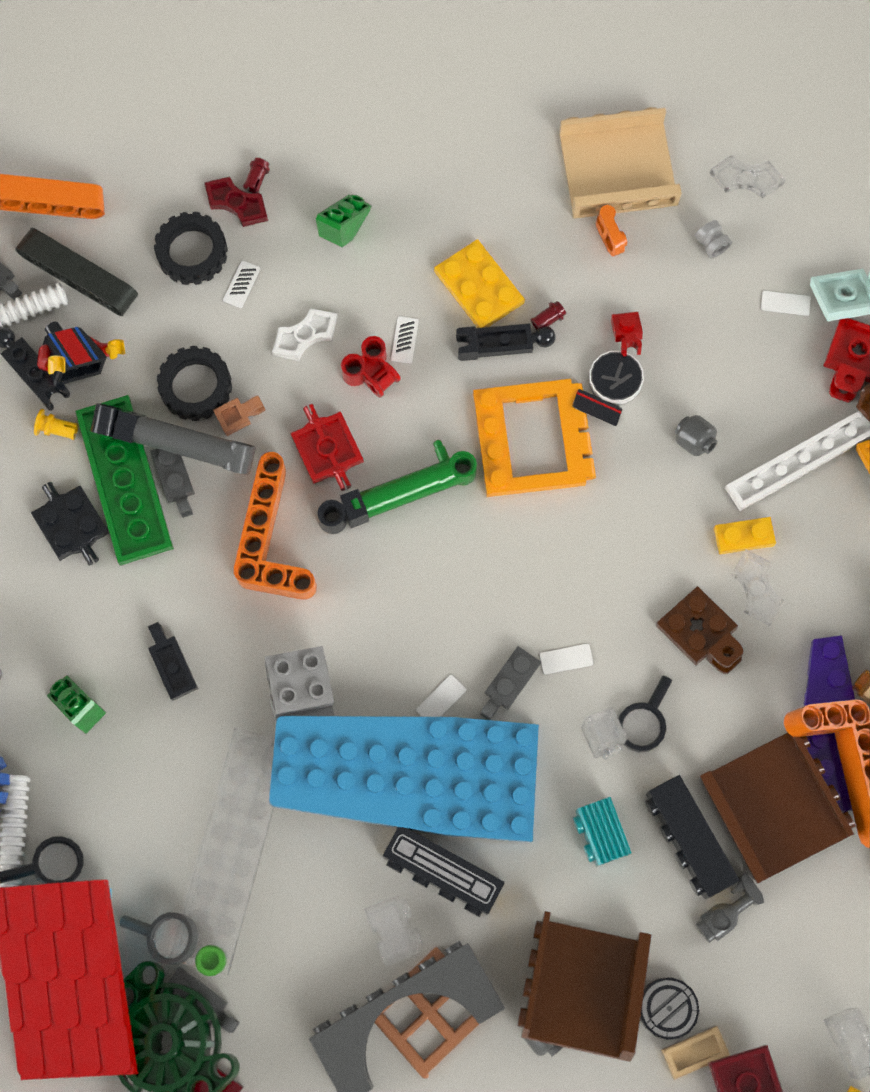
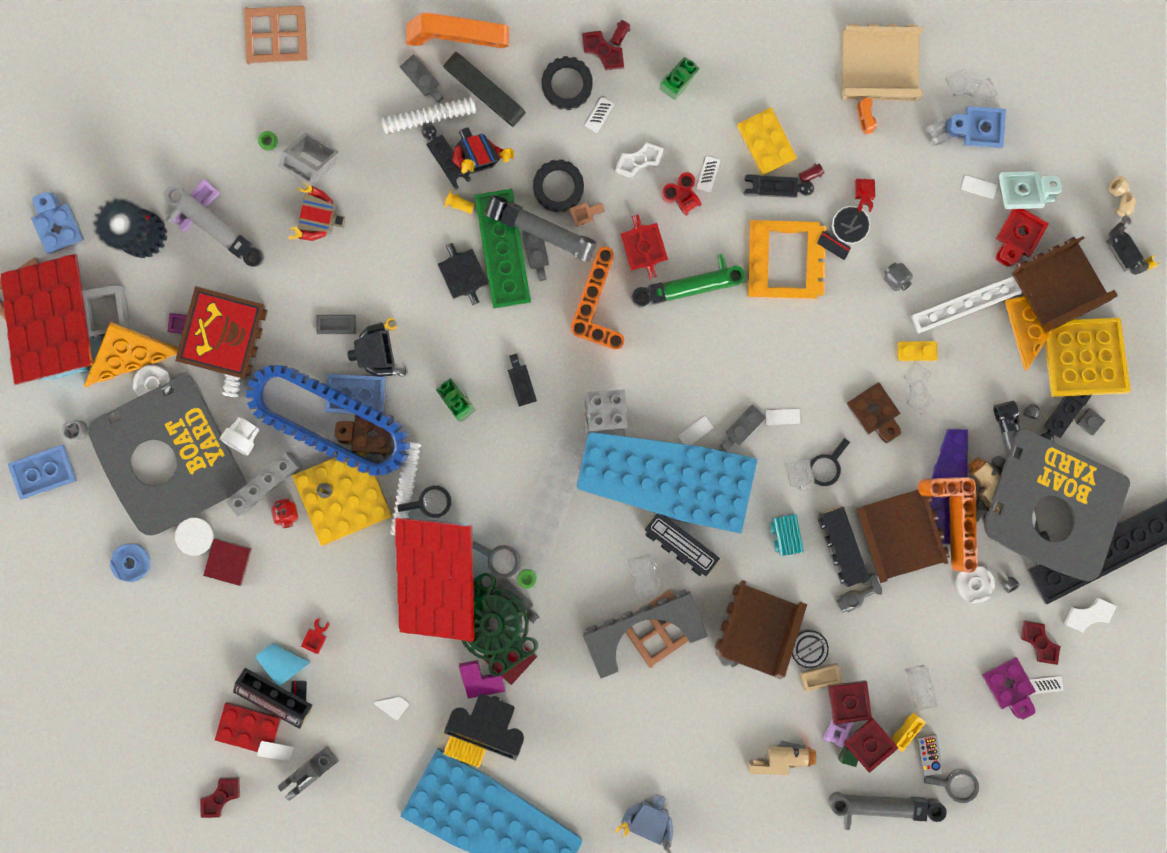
camera: 10 degrees right, 15 degrees up
(754, 224) = (969, 127): none -> medium blue plate

